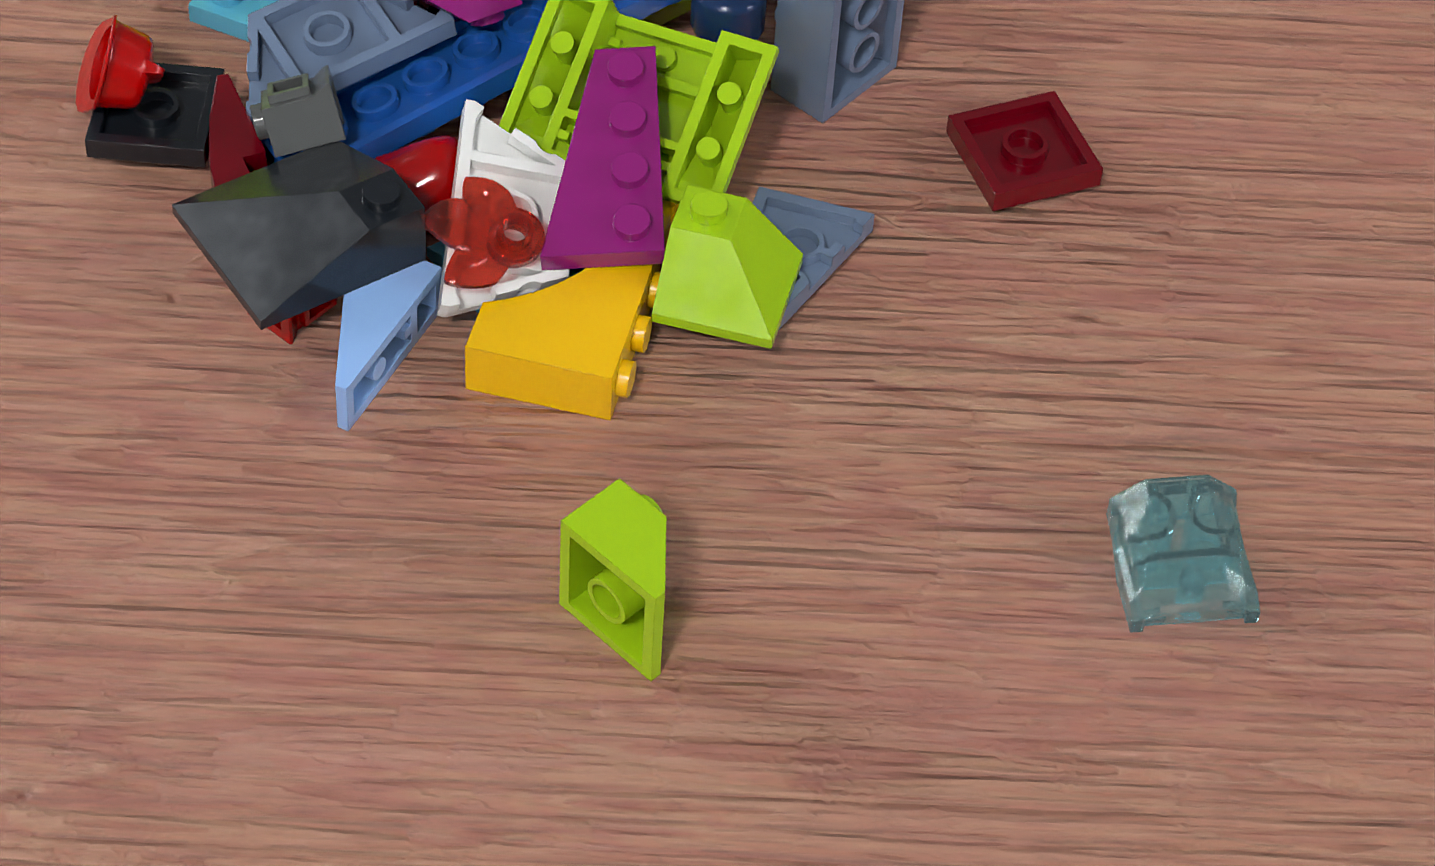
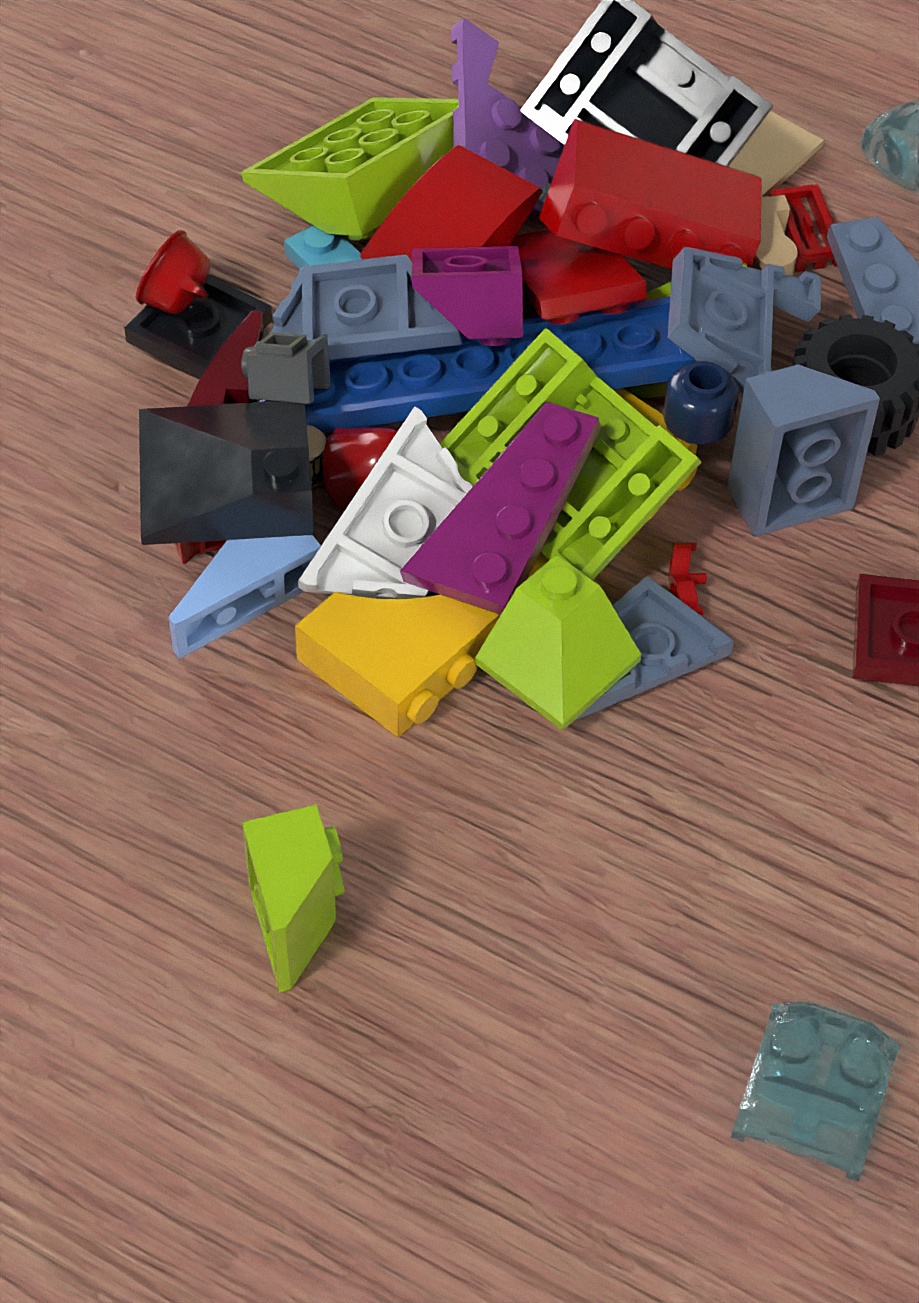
camera: 30 degrees right, 5 degrees up
(476, 233) = (355, 525): clear red plate -> none
(776, 172) = (680, 580): none -> red piece

